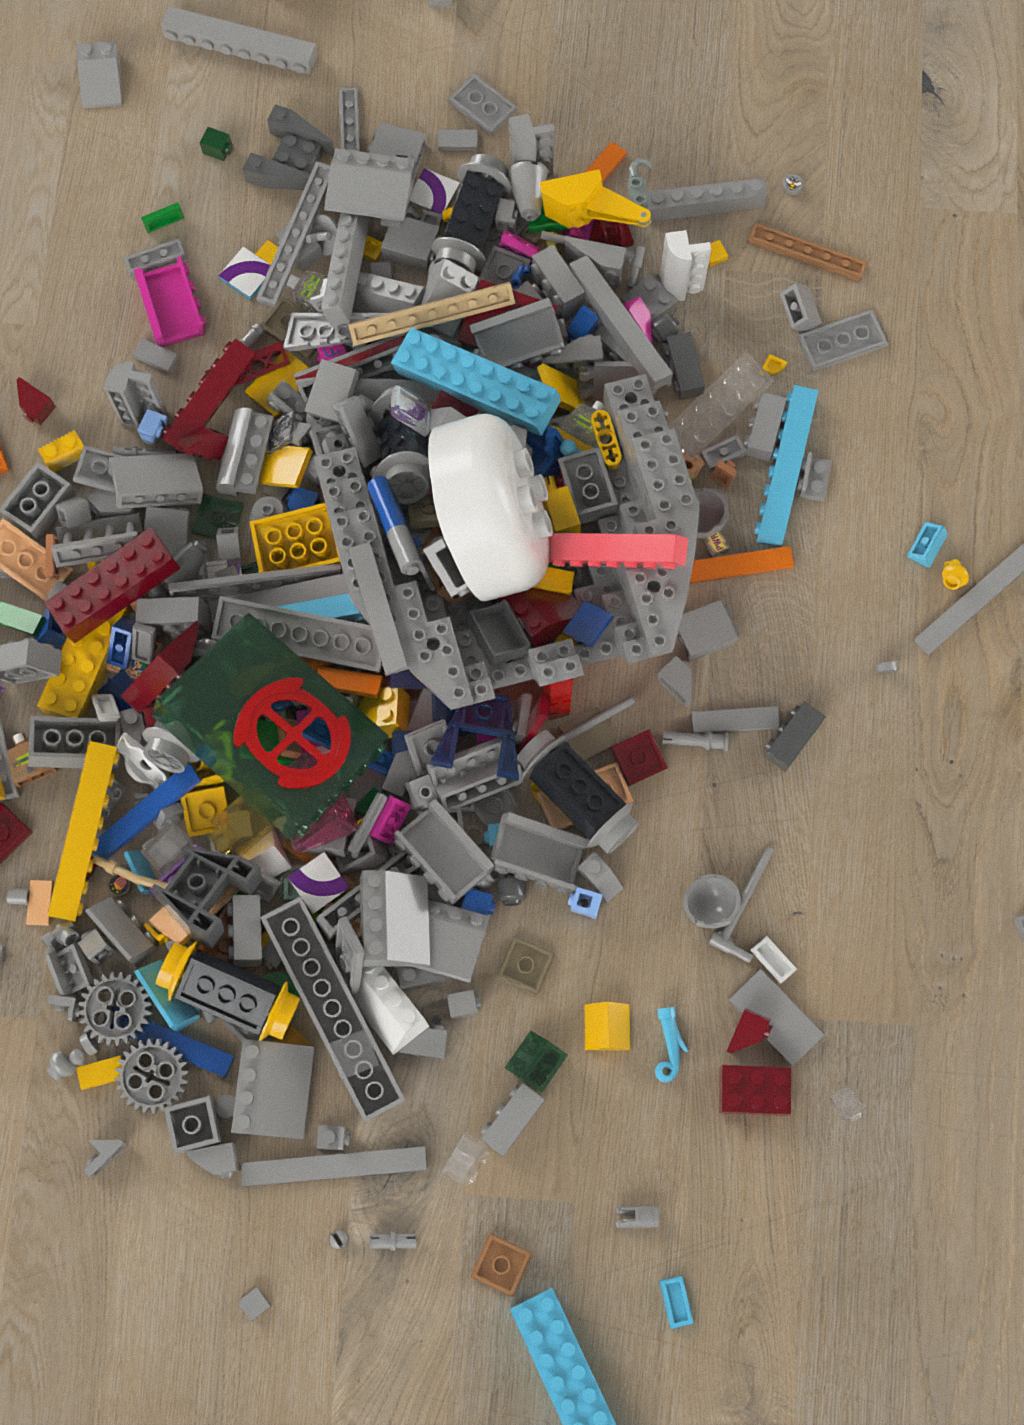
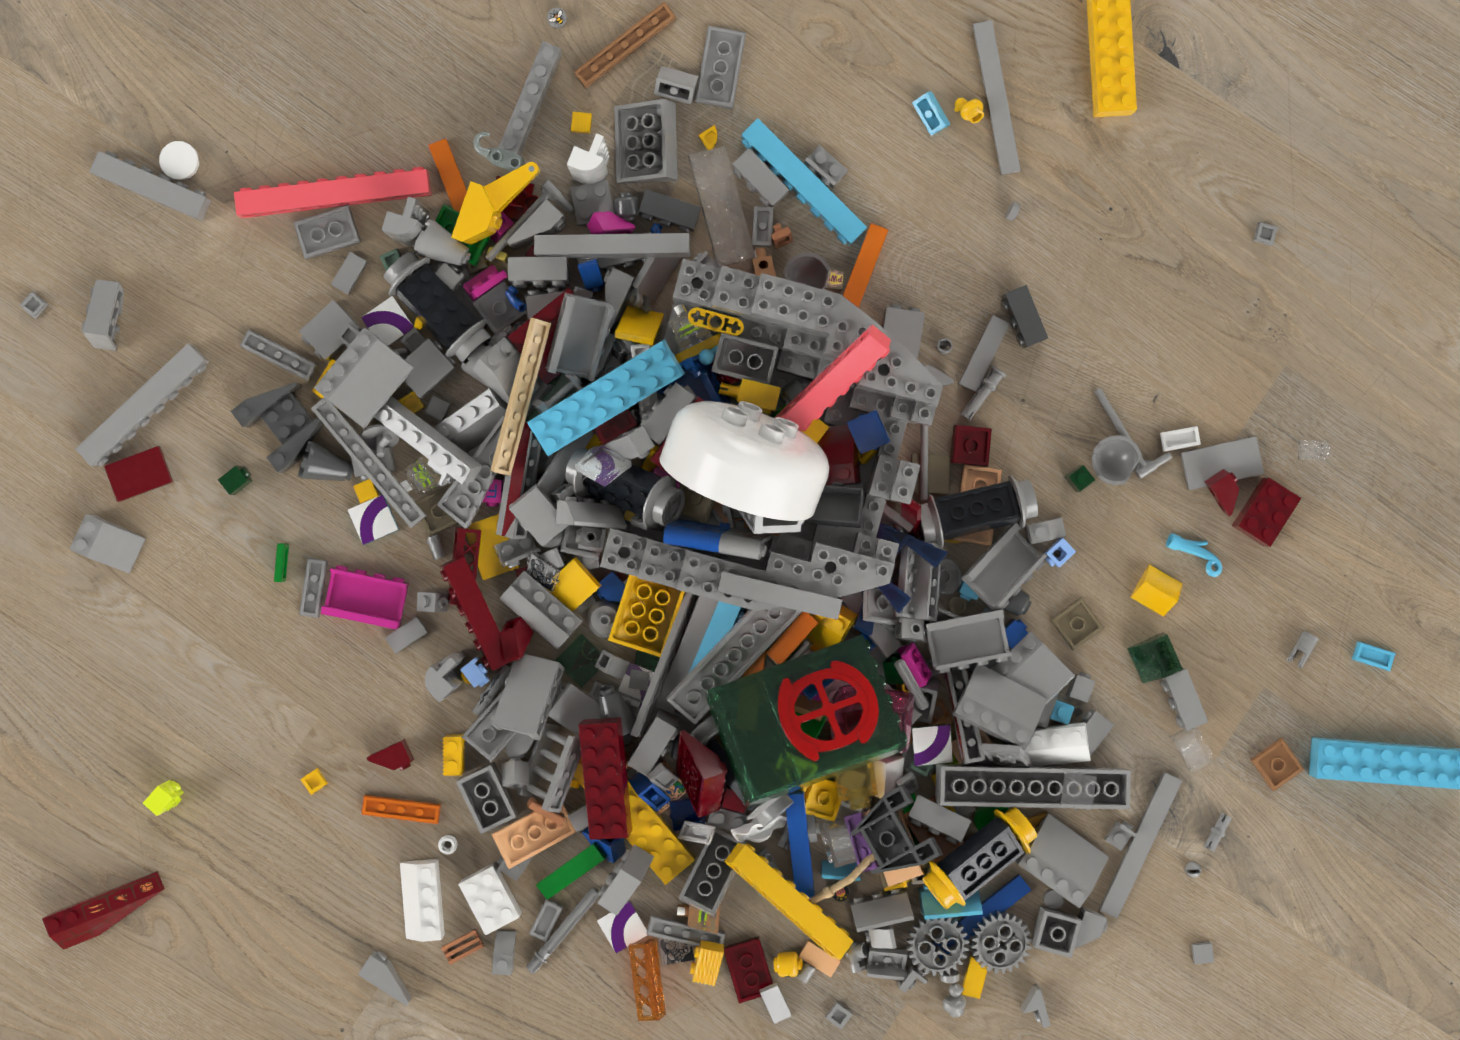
camera: 65 degrees left, 15 degrees up
(17, 872) = (787, 964): none -> yellow head
(176, 69) = (138, 474): none -> dark red tile
(198, 359) = (432, 602): none -> light grey bracket
(272, 202) = (323, 464): none -> dark grey cone
(426, 996) = (1062, 712): none -> medium azure brick
(519, 88) = (332, 193): none -> coral brick
(671, 879) = (1079, 478): none -> dark green brick
(720, 676) = (944, 342): none -> light grey hinge
(733, 314) = (646, 142): none -> light grey slope

